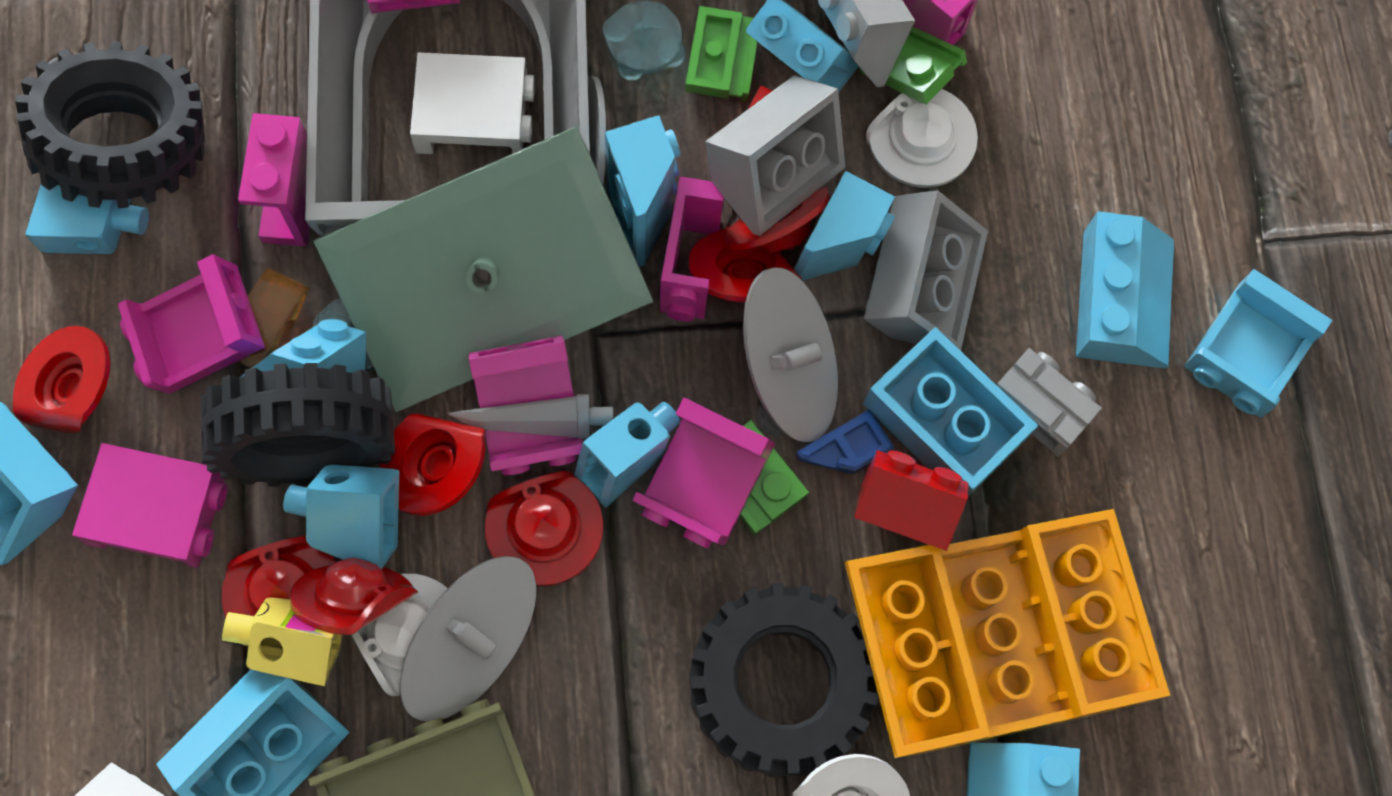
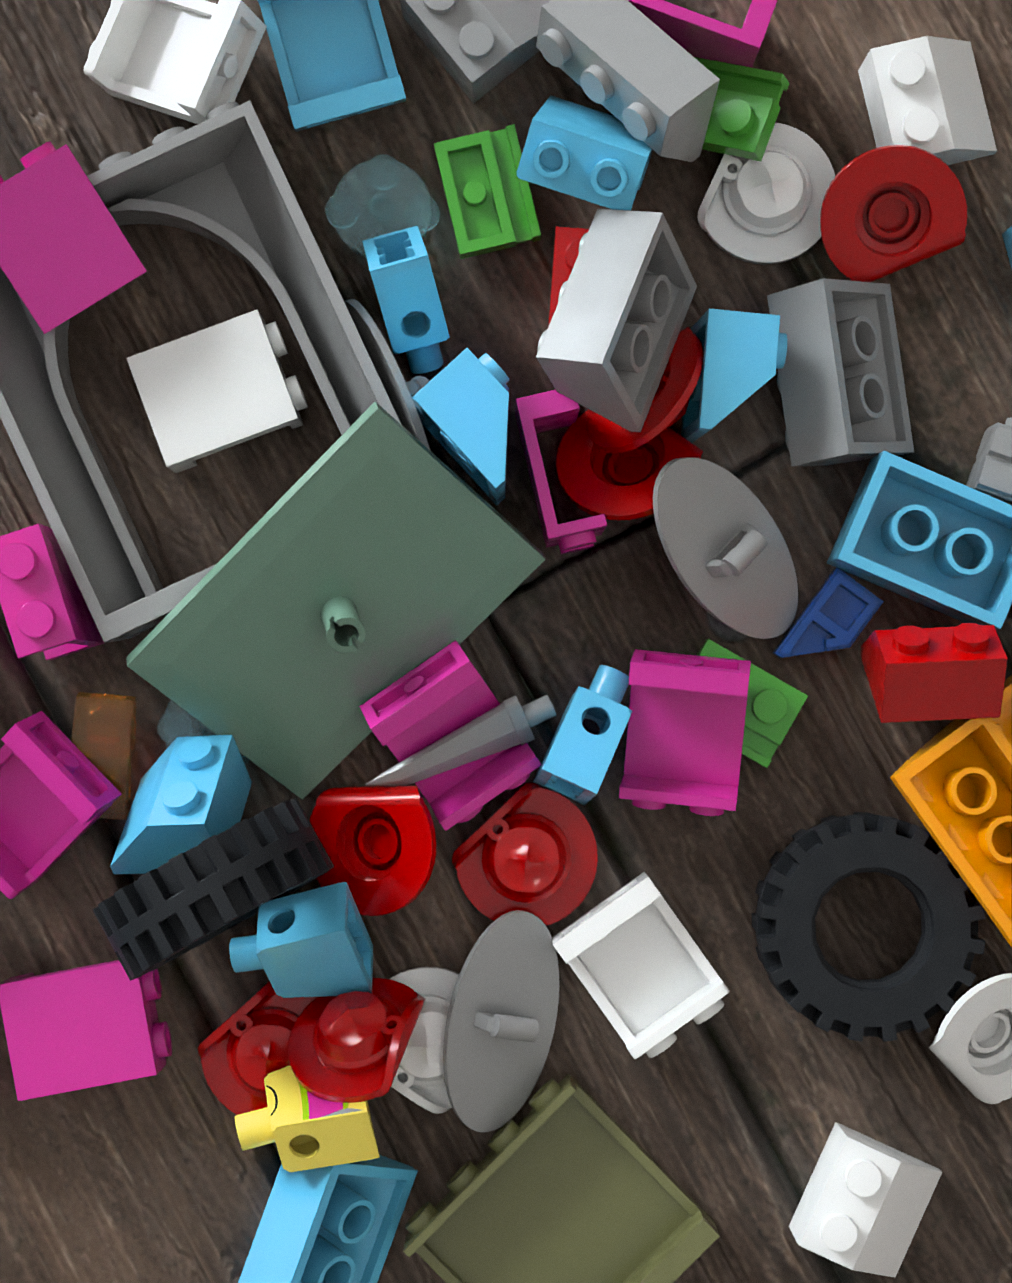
camera: 15 degrees left, 15 degrees up
(594, 641) = (641, 967): none -> white panel
(634, 74) = (408, 297): none -> medium azure torso
(1007, 175) = (891, 212): none -> red hat
(1060, 119) = (928, 98): none -> white slope

